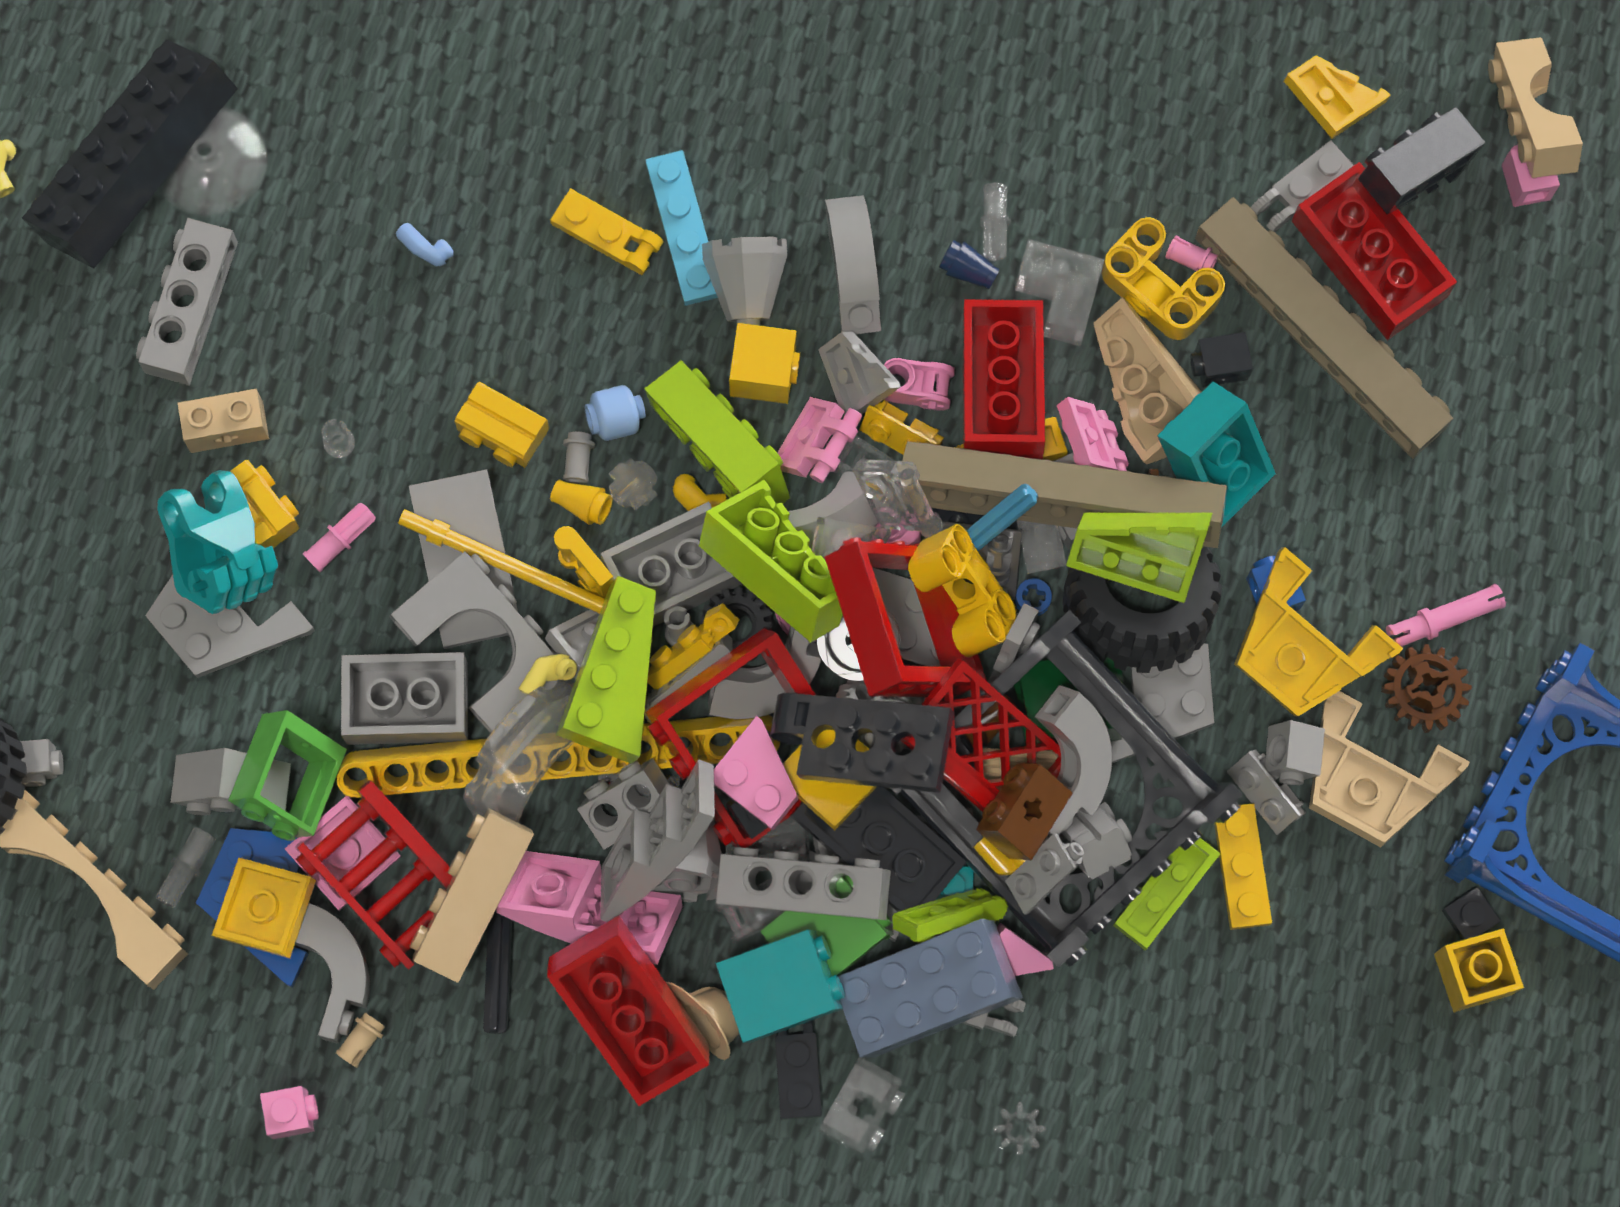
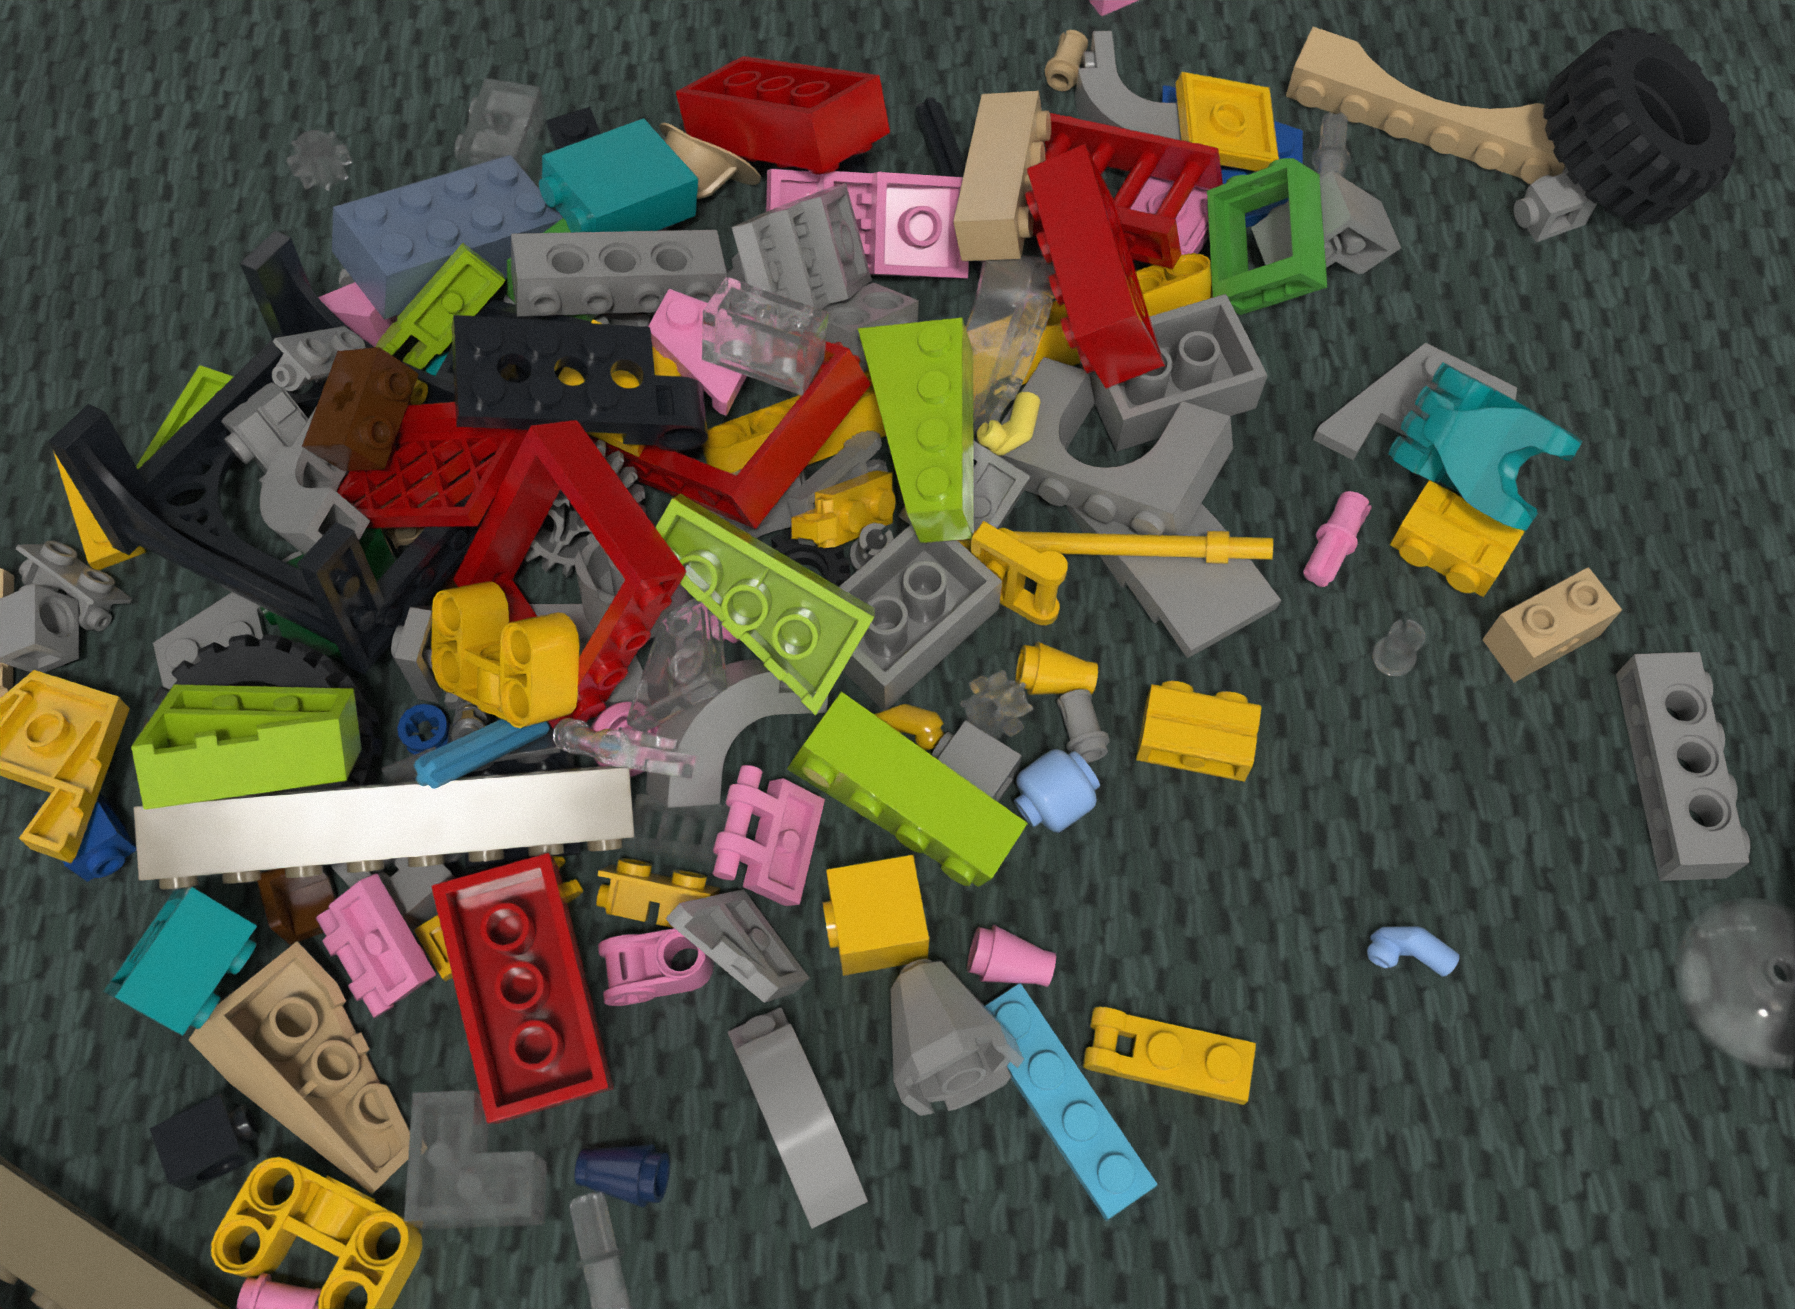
camera: 165 degrees right, 10 degrees down
(445, 751) = (1092, 268): none -> red brick
(663, 447) = (979, 759): none -> light grey brick
(686, 318) = (1009, 959): none -> bright pink cone
(716, 732) = (764, 335): none -> clear brick

